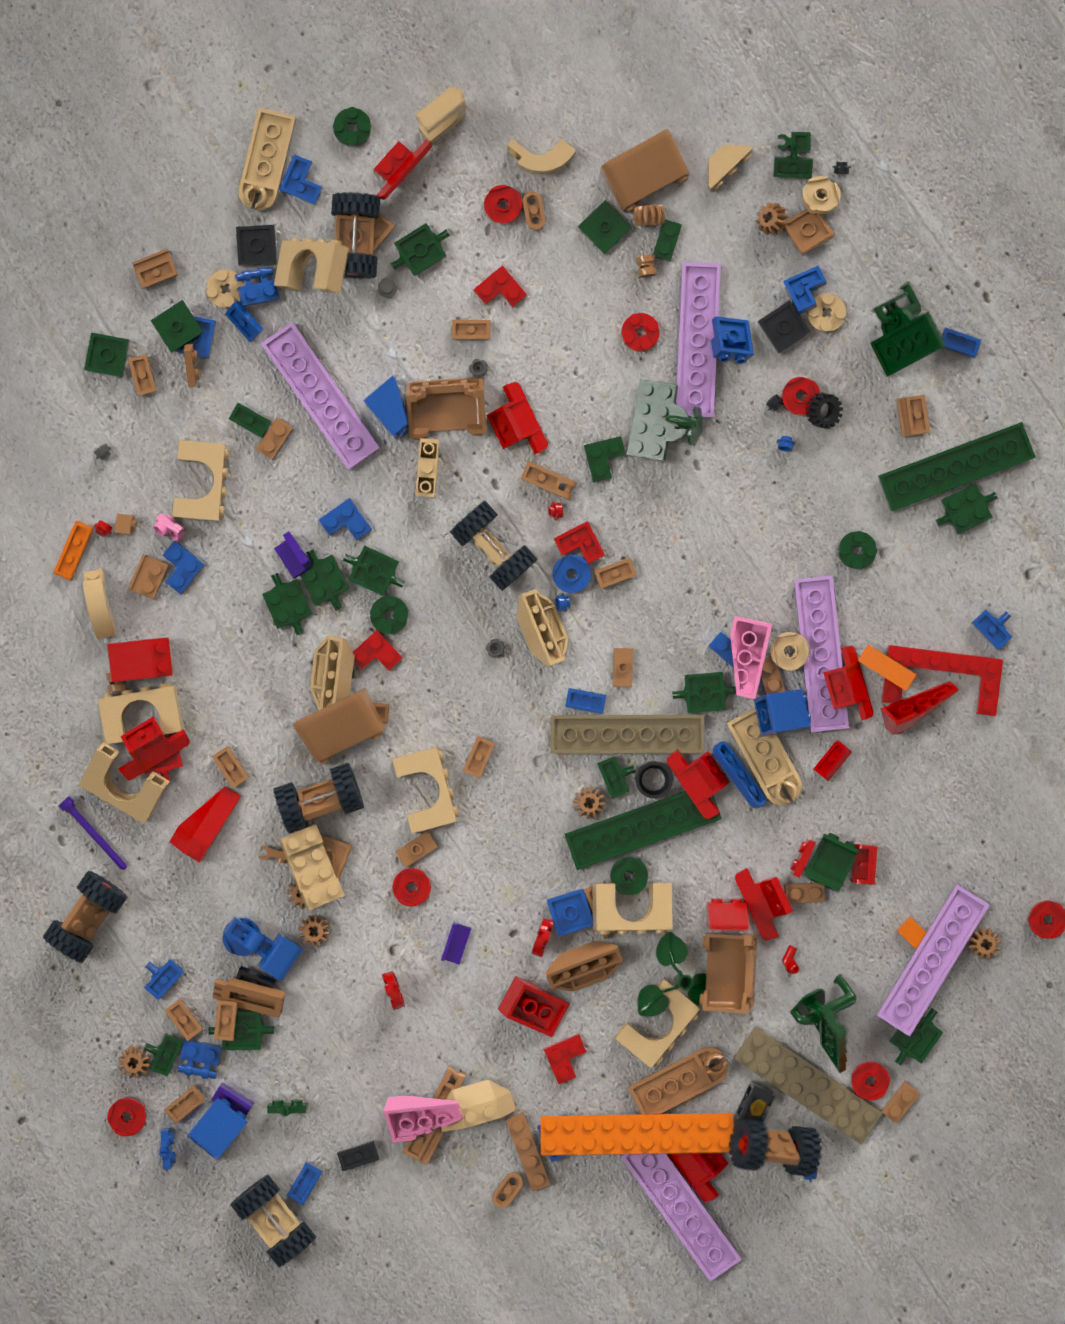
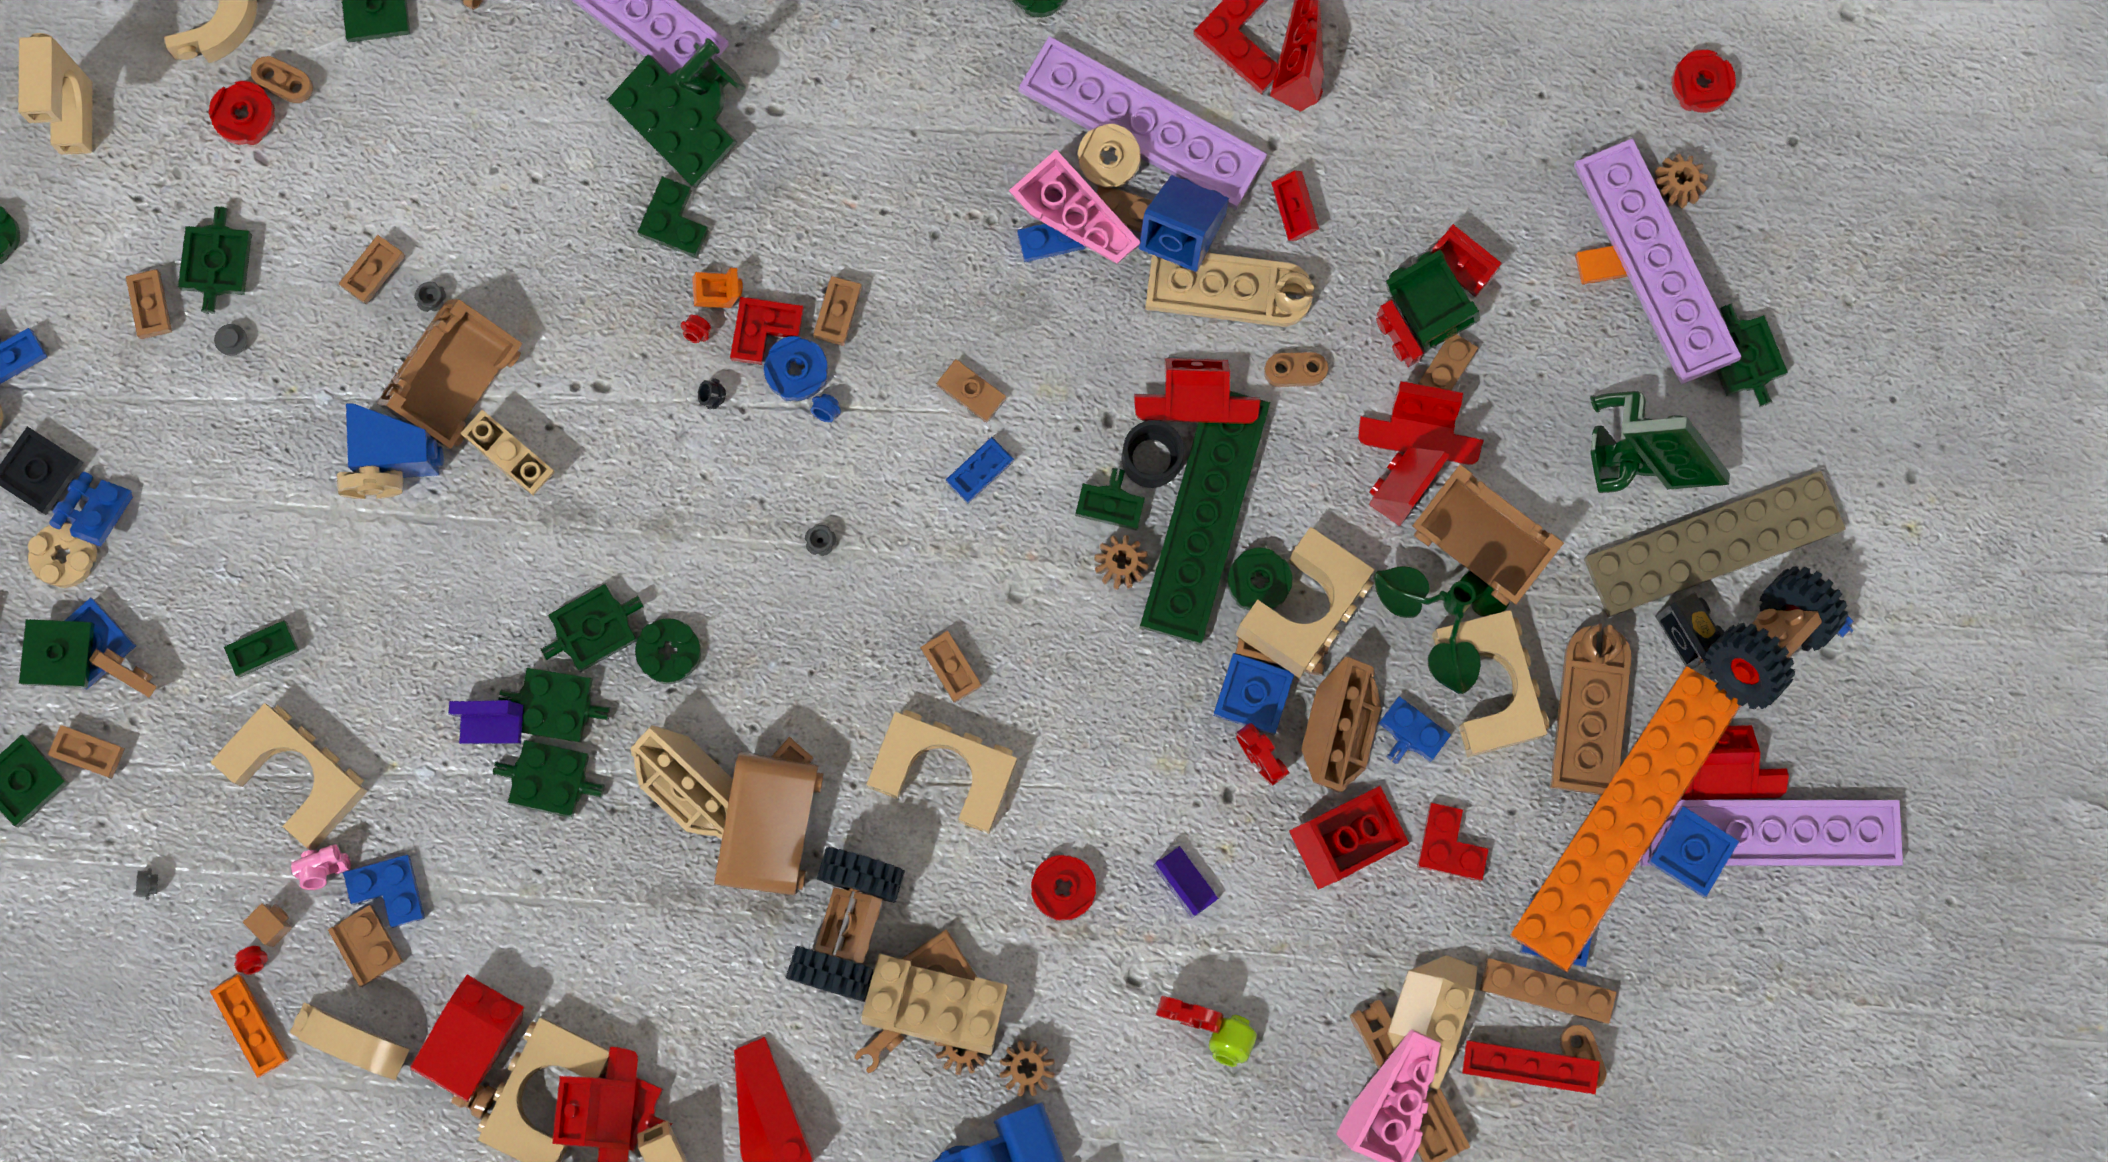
camera: 60 degrees left, 10 degrees down
(230, 767) = (712, 1021): medium nougat plate -> none
(244, 321) = (123, 560): blue plate -> none
(274, 438) = (312, 634): medium nougat plate -> none
(295, 255) = (88, 419): tan arch -> none
(320, 396) = (302, 530): lavender plate -> none
(347, 515) = (489, 612): blue plate -> none
(355, 229) = (98, 306): plate -> none
(365, 412) = (369, 482): none -> tan plate
(376, 647) = (699, 698): red plate -> none
(396, 1019) = (1233, 1042): none -> lime head
(398, 165) = (80, 208): red plate -> none
(416, 848) = (1015, 843): medium nougat plate -> none
(473, 527) = (631, 446): black plate -> none
(484, 1168) = (1531, 1067): none -> red plate
(500, 283) = (342, 188): red plate -> none
(517, 421) = (538, 297): red plate -> none
(530, 541) = (711, 394): none -> black plate
(542, 627) = (836, 456): tan wedge -> none
(548, 480) = (648, 311): medium nougat plate -> none
(583, 506) = (716, 289): none -> orange bracket
(607, 1001) = (1412, 731): none -> blue plate
(627, 734) = (1064, 447): dark tan plate -> none
(643, 1176) = (1693, 851): none -> blue plate
(646, 341) = (547, 40): red plate -> none
(704, 692) = (1083, 306): dark green plate -> none
(739, 775) = (1227, 338): blue plate -> none
(748, 819) = (1297, 371): none -> medium nougat plate
(789, 962) = (1527, 451): red arm -> none
(848, 685) = (1209, 116): red plate -> none
(880, 1085) = (1779, 446): red plate -> none
(887, 667) = (1222, 49): orange tile -> none
(900, 1102) = (1821, 438): medium nougat plate -> none

